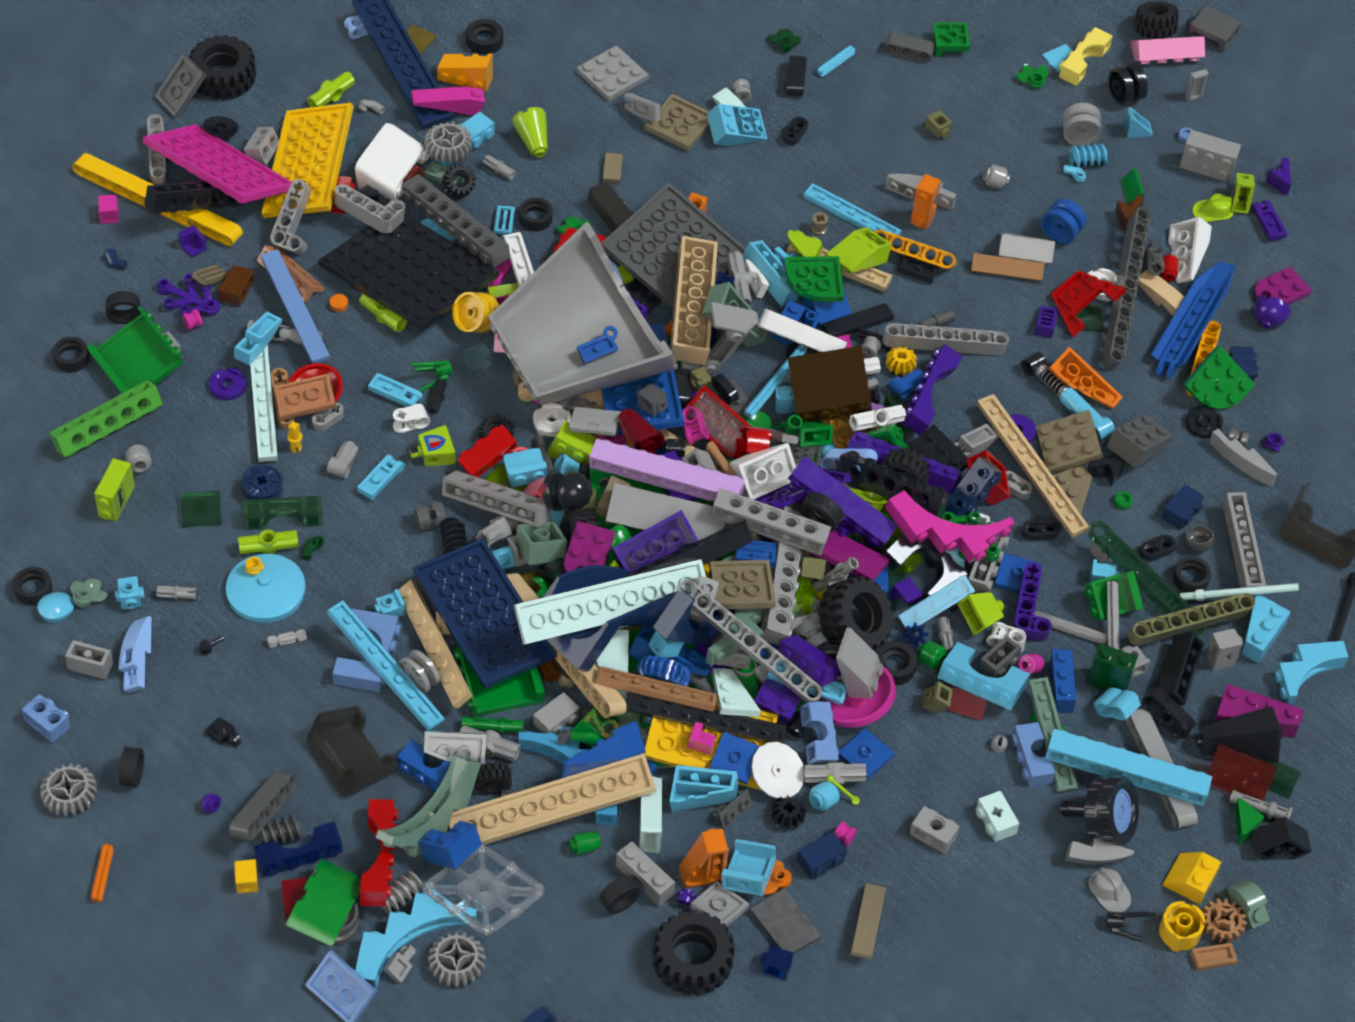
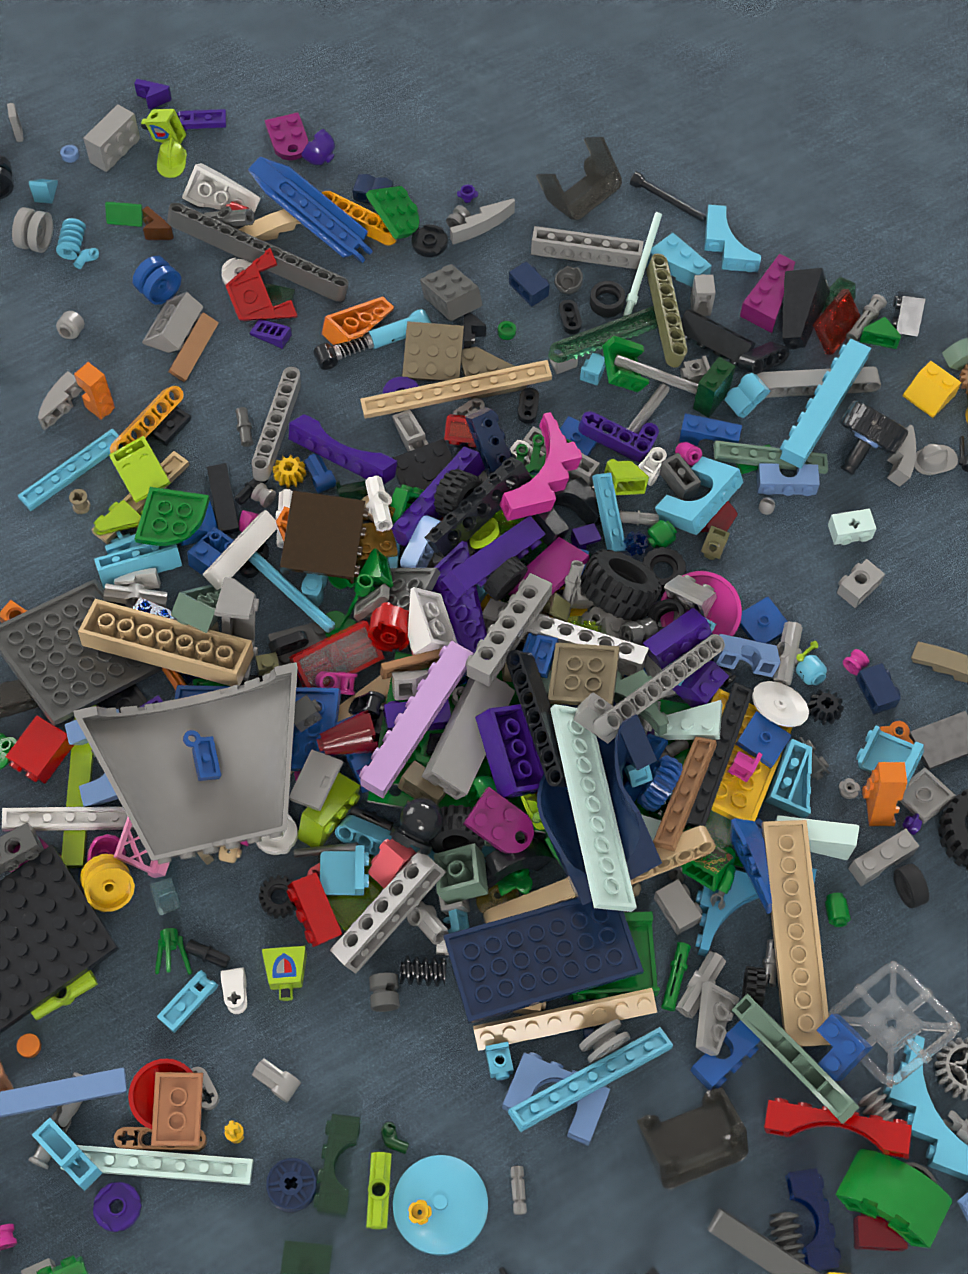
camera: 75 degrees left, 10 degrees up
(380, 477) = (311, 1040): medium azure plate -> none

